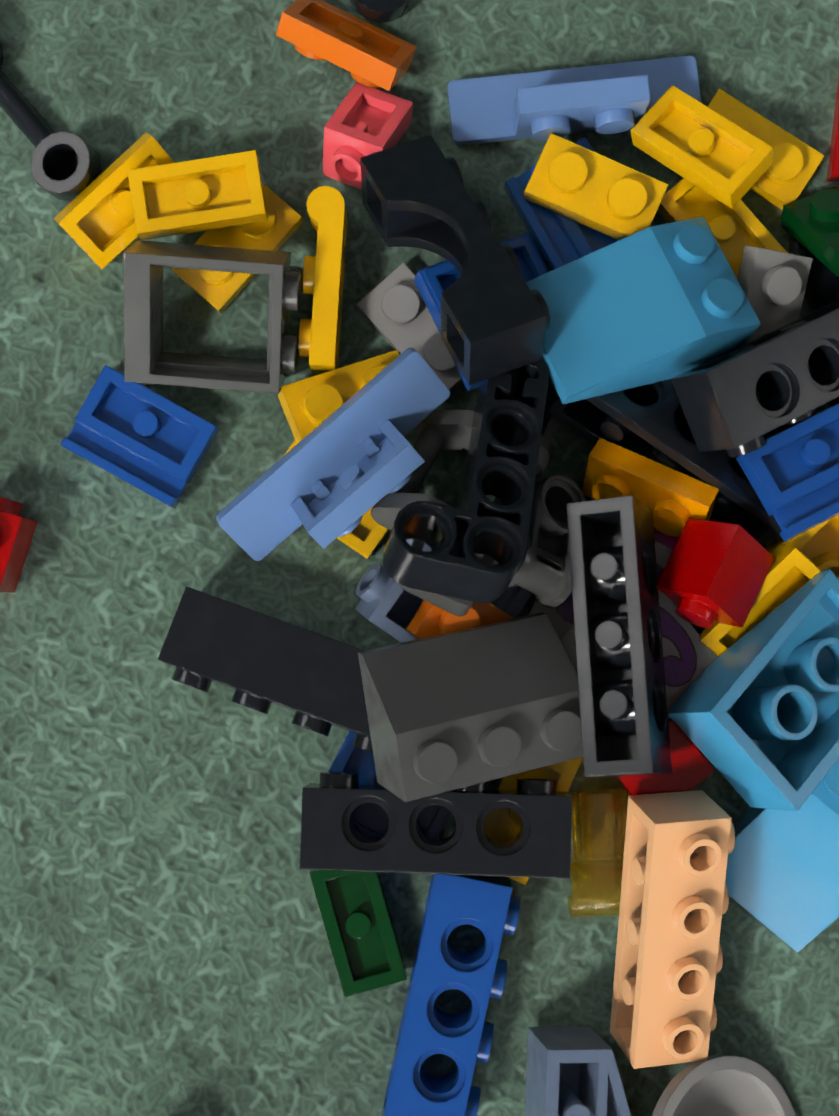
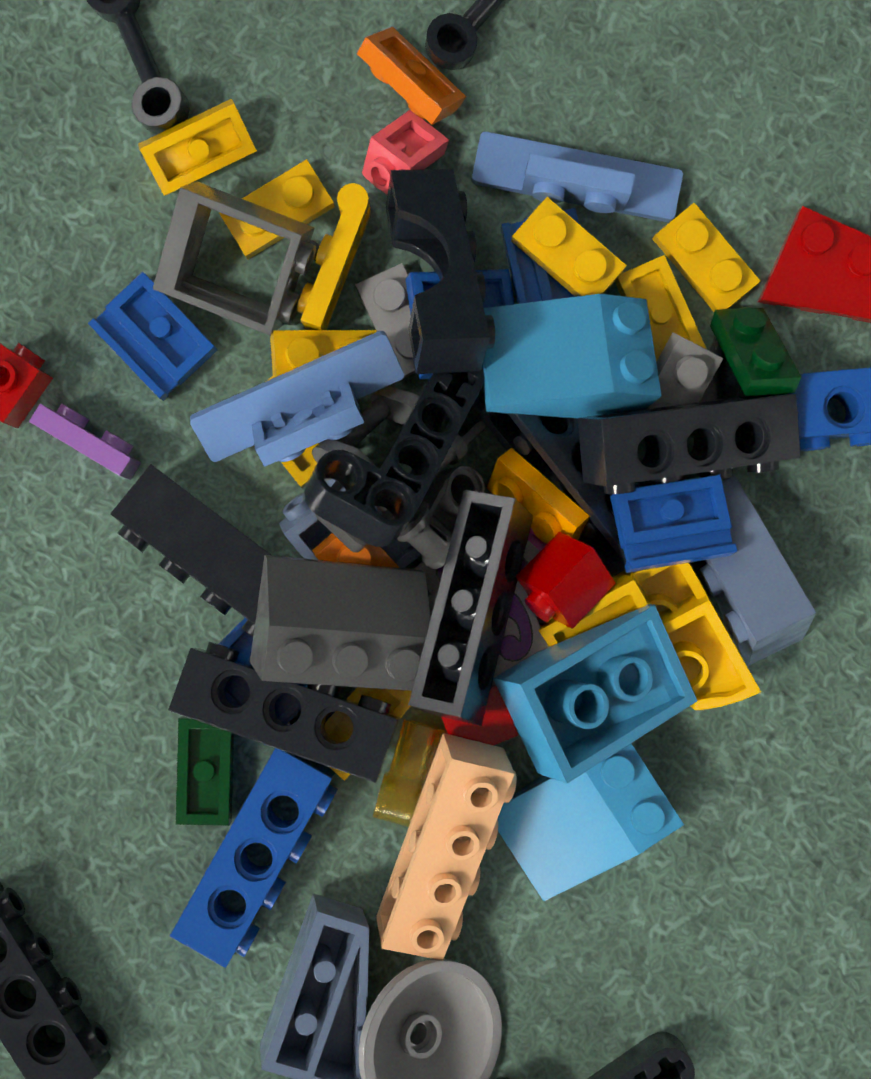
camera: 15 degrees right, 0 degrees up
(75, 573) = (69, 428): none -> medium lavender plate
(197, 195) = (254, 160): yellow plate -> none
(702, 146) = (663, 243): yellow plate -> none

